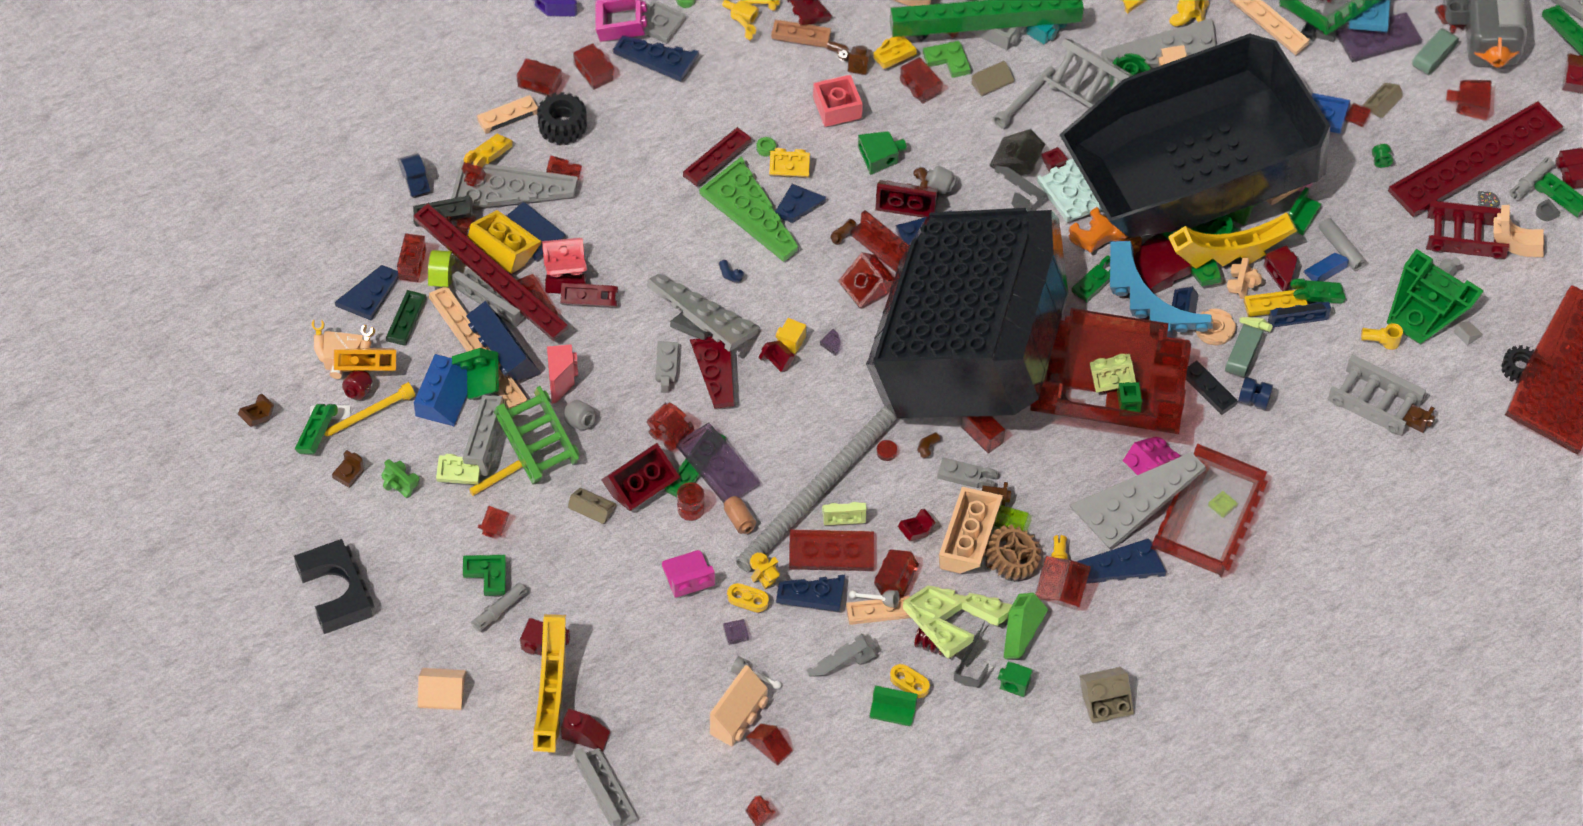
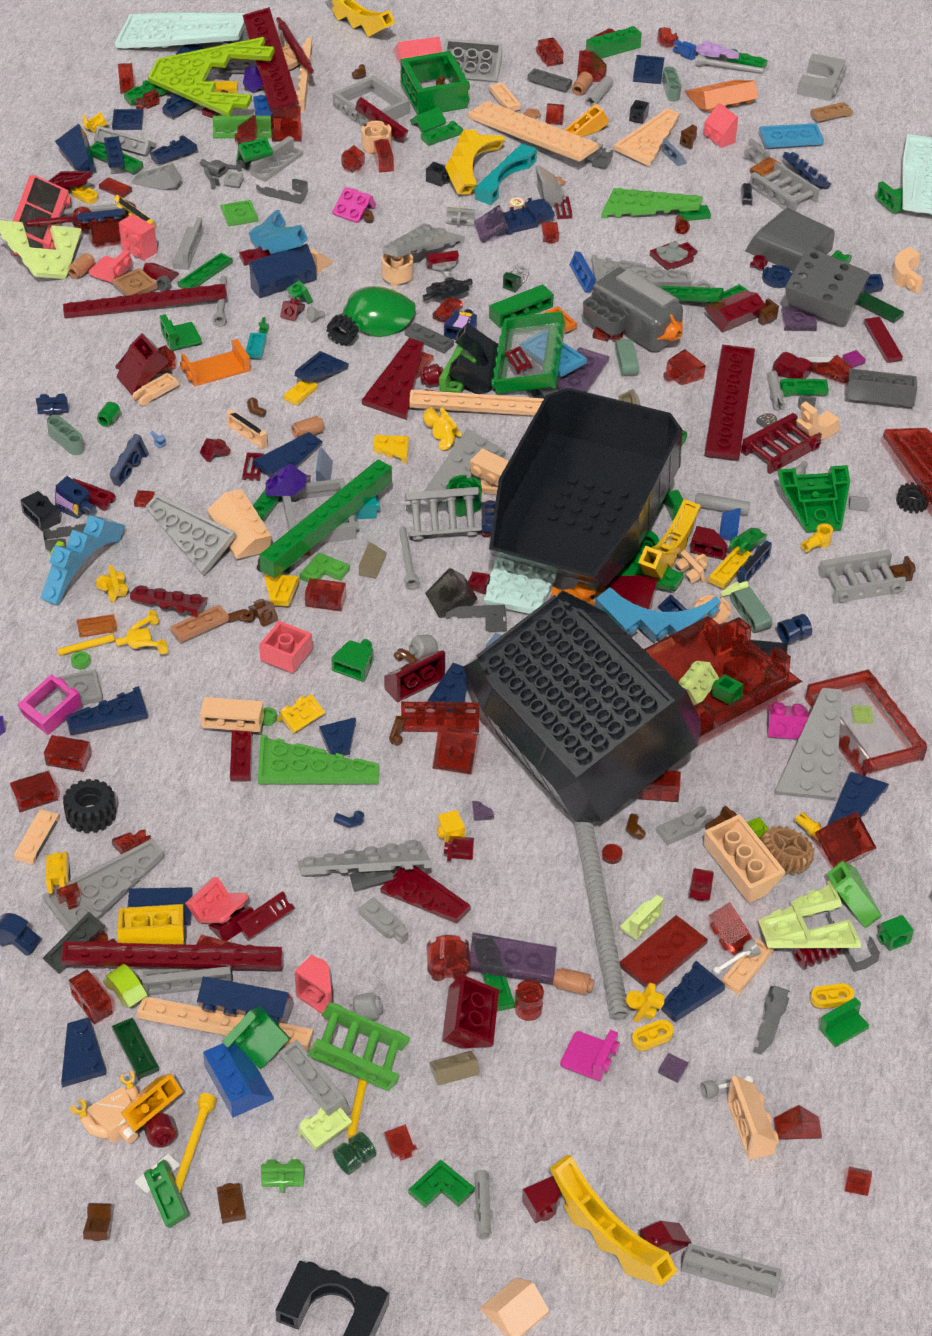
camera: 45 degrees left, 10 degrees down
(449, 503) = (352, 1154): none -> clear green wheel
(733, 124) = (232, 714): none -> light nougat brick

